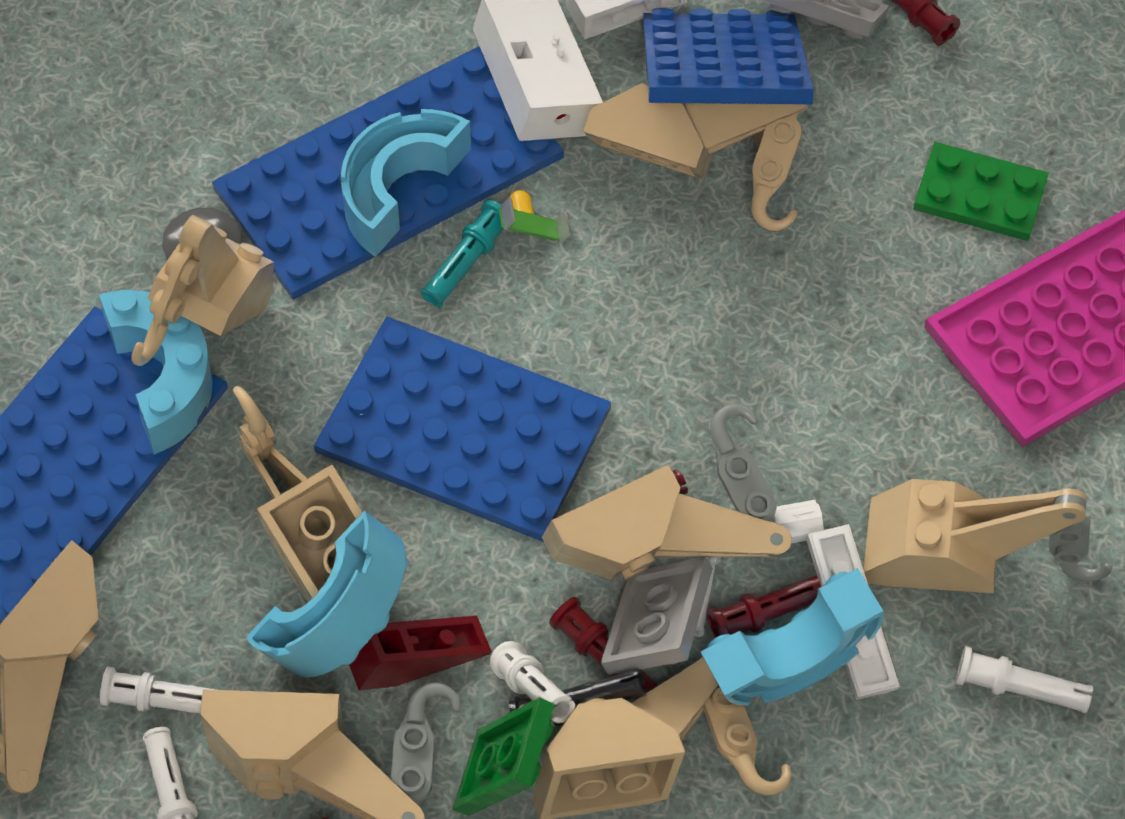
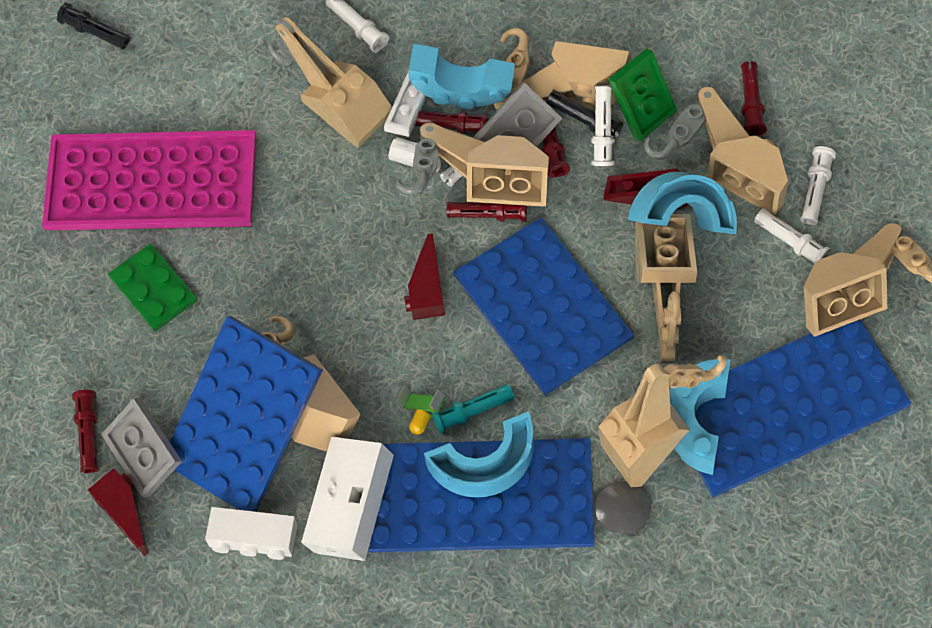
camera: 140 degrees left, 5 degrees up
(629, 358) = (424, 286): none -> dark red slope

